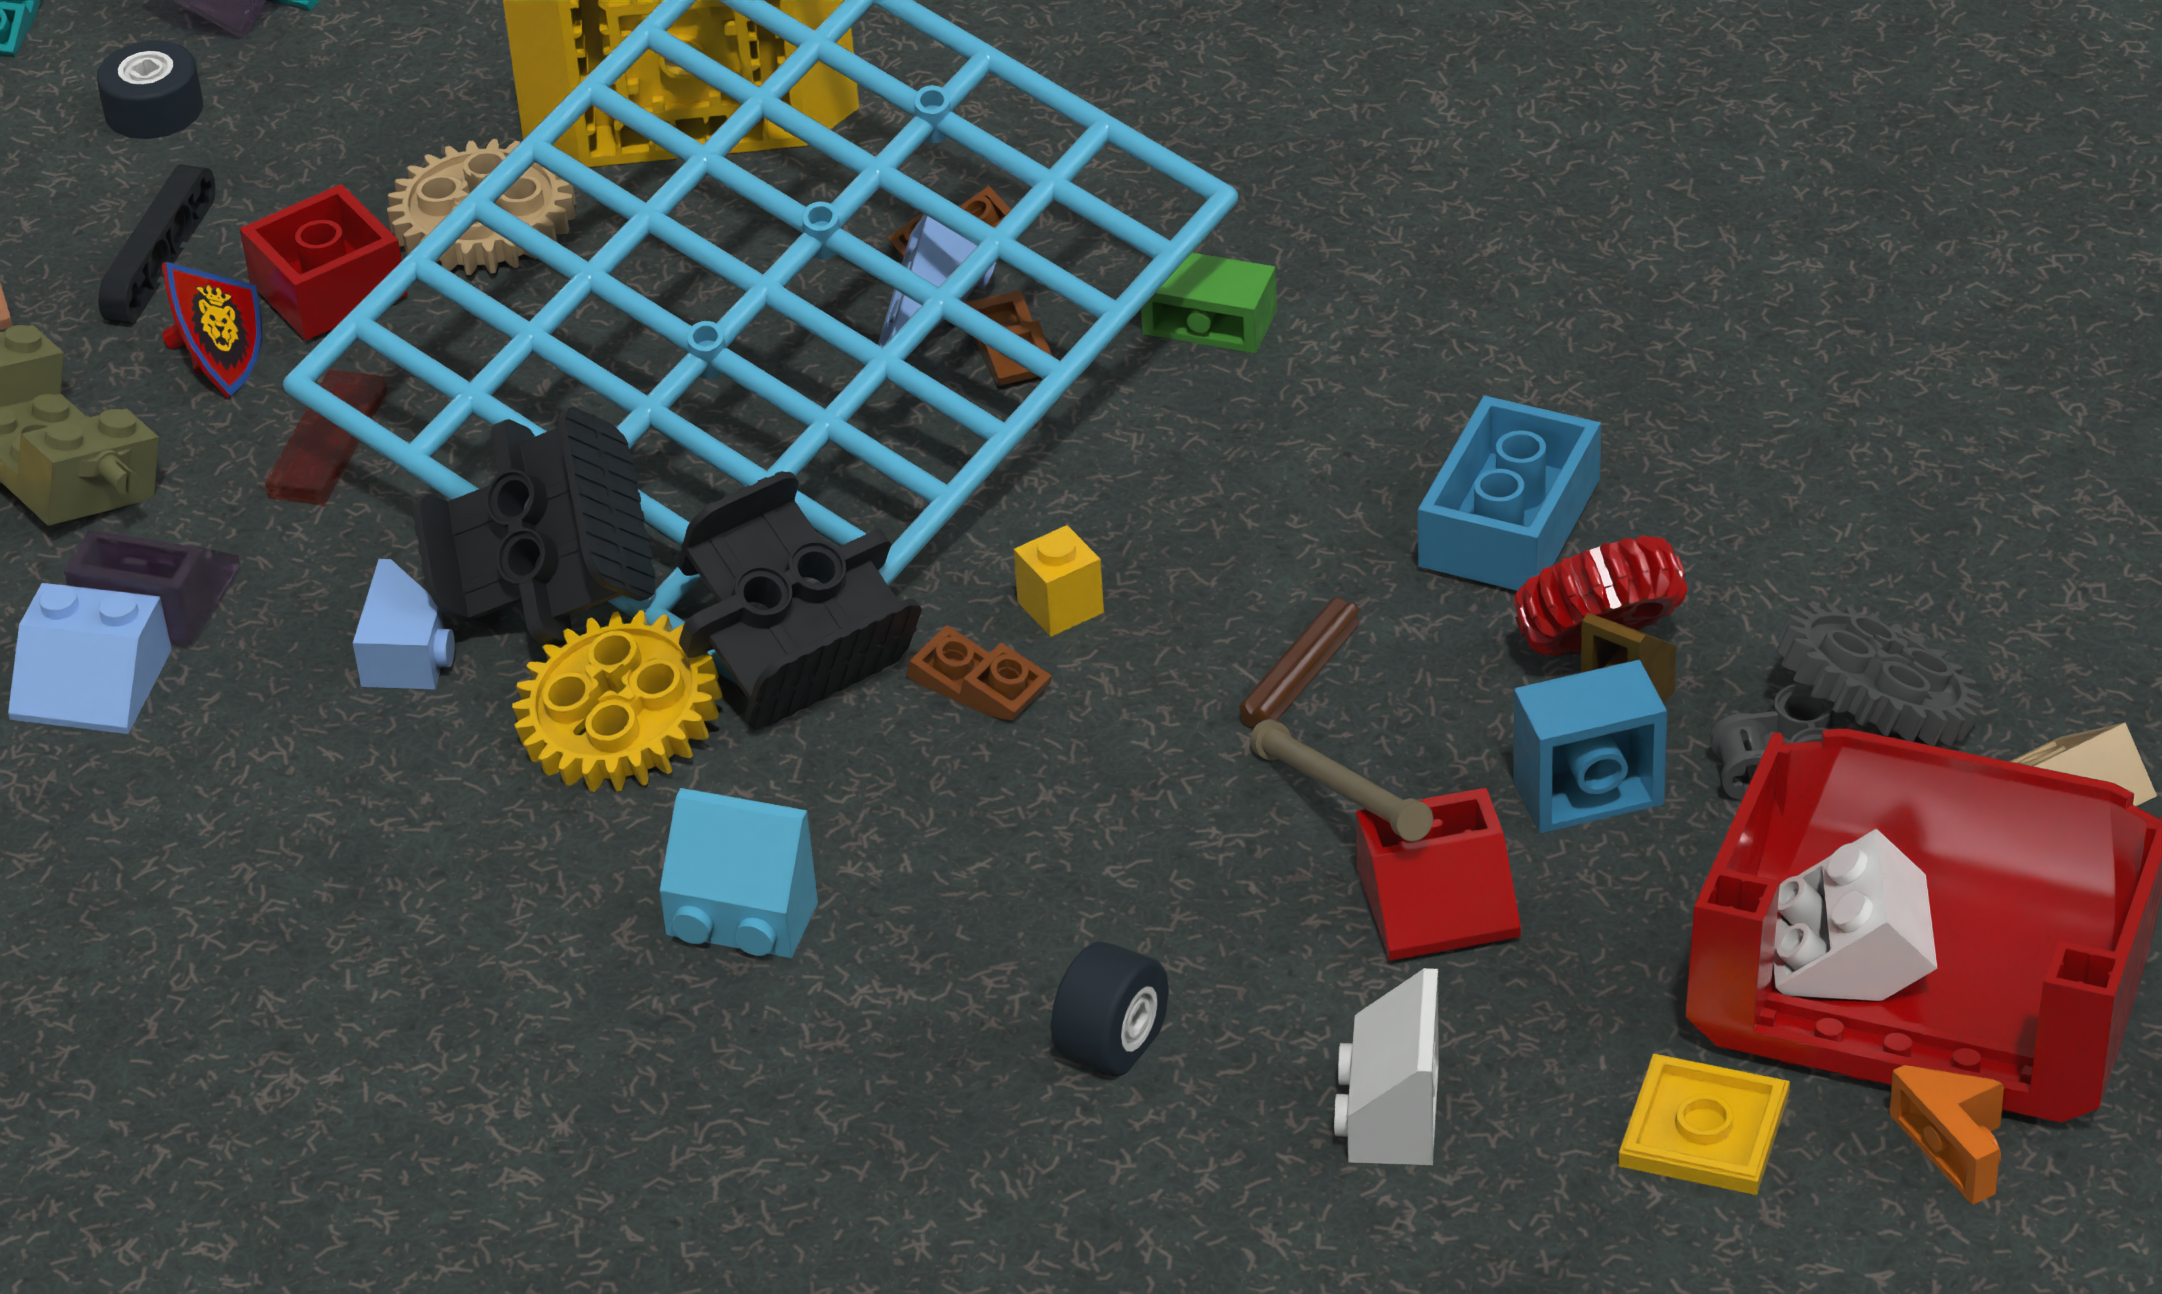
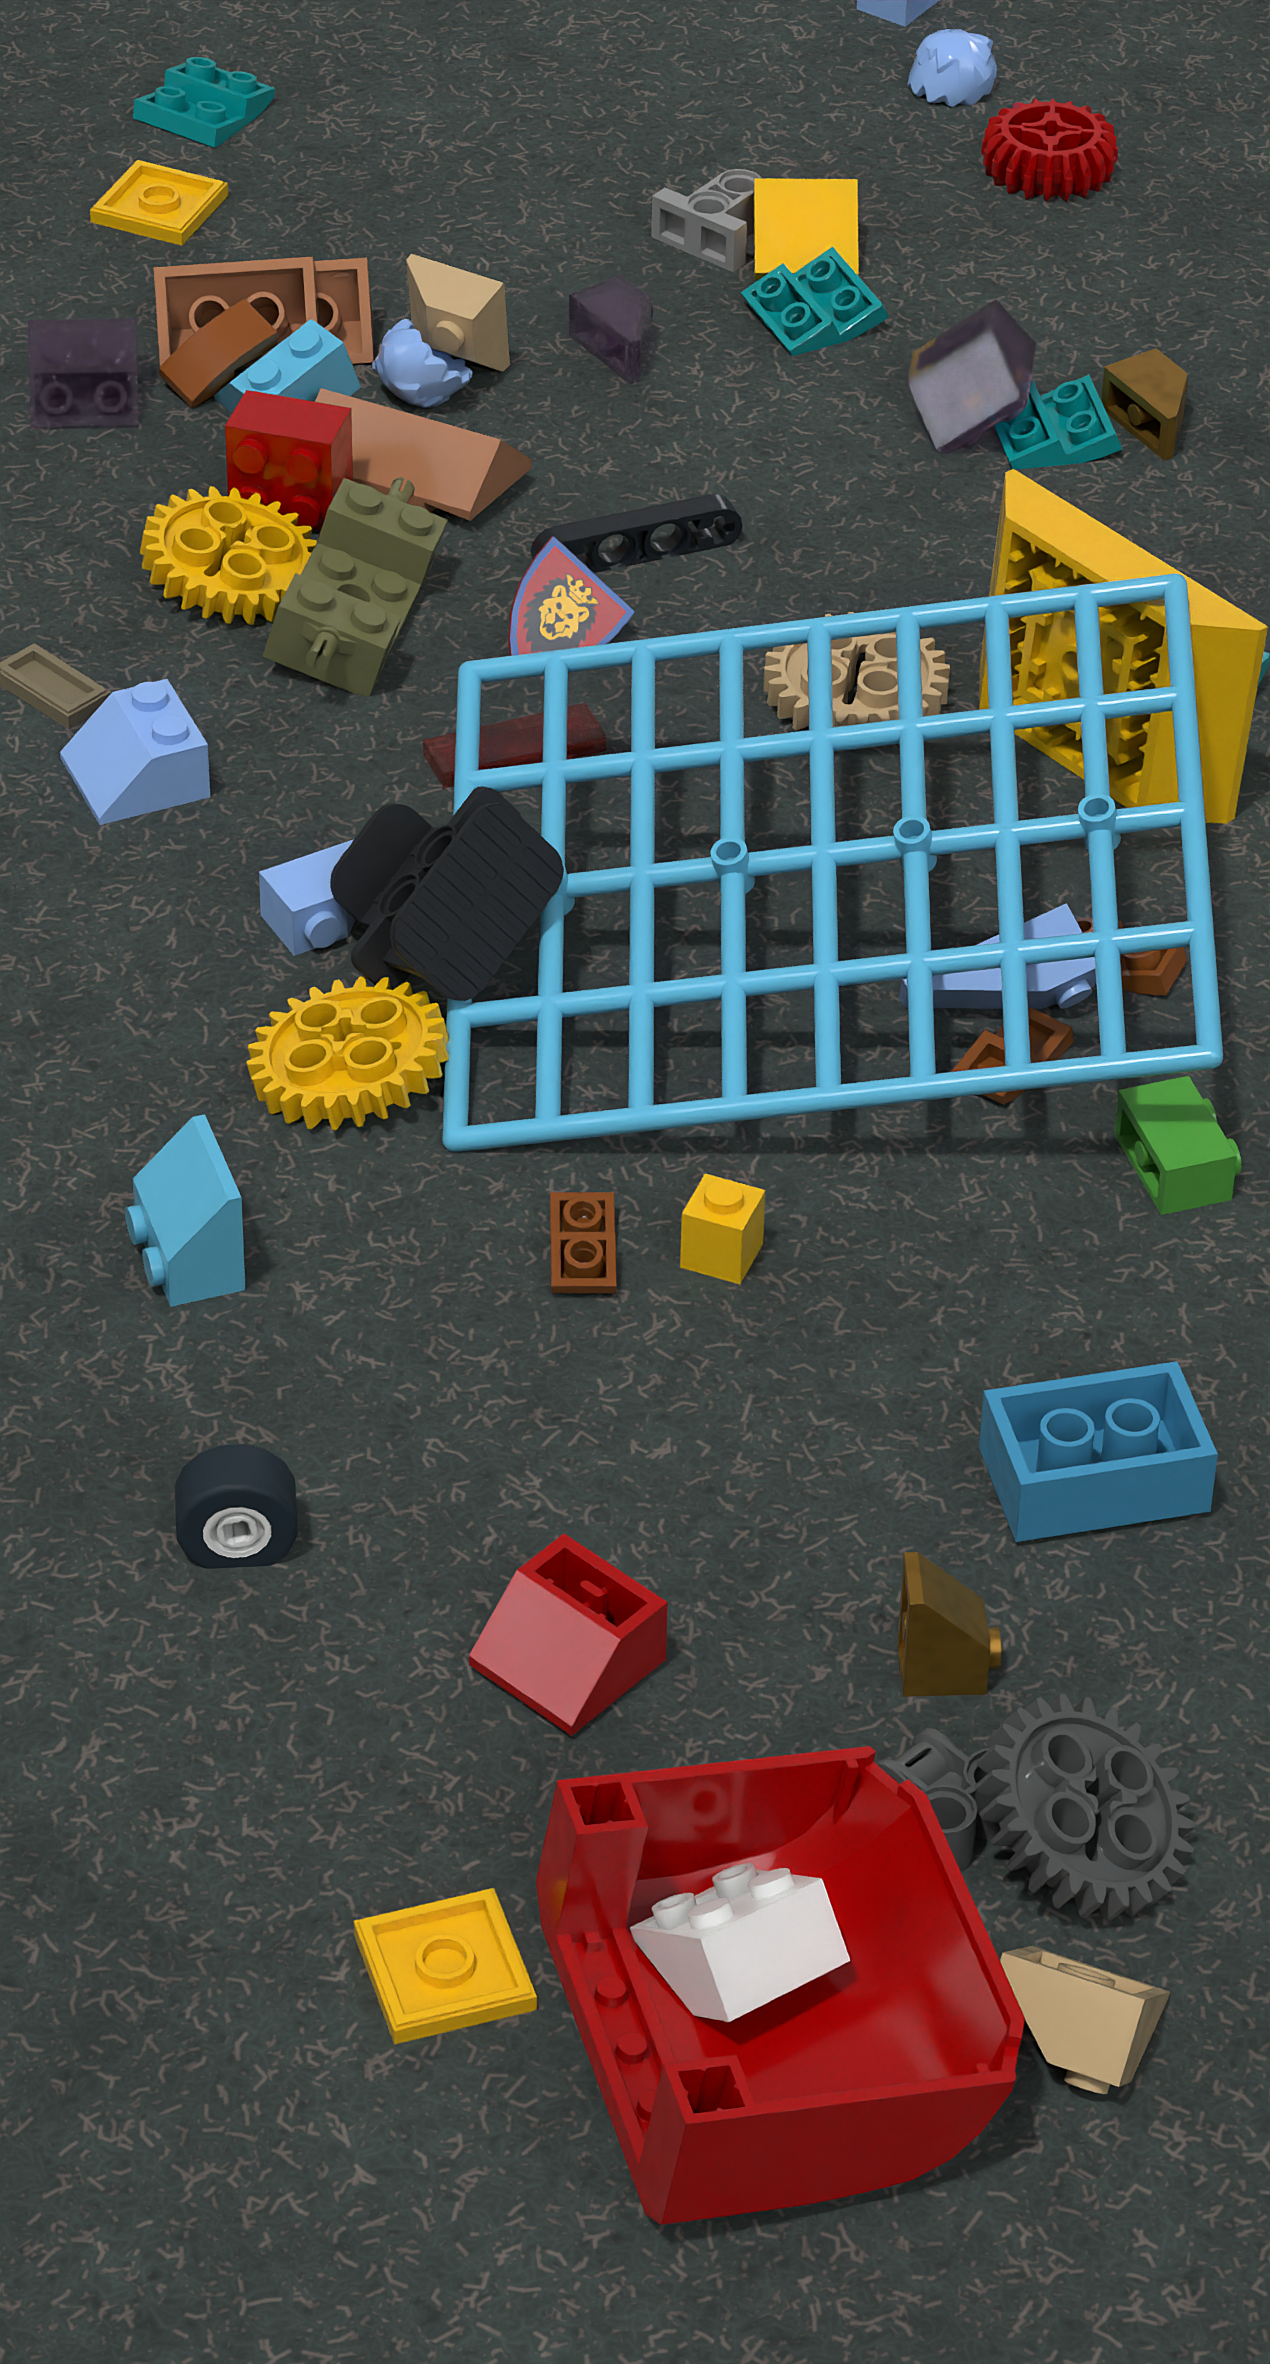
camera: 50 degrees right, 0 degrees up
(150, 89) = (808, 436): black wheel -> none
(182, 575) = (251, 735): clear purple slope -> none
(319, 259) = (681, 601): red brick -> none
(812, 635) = (489, 1112): black piece -> none
(1300, 662) = (779, 1431): reddish brown axle -> none
(1392, 1076) = (302, 1730): white slope -> none
(1407, 817) = (546, 1557): dark tan bar -> none
(1589, 746) = (802, 1651): dark azure brick -> none
(1619, 581) = (998, 1560): red gear -> none
(1952, 1124) = (563, 2126): orange slope -> none

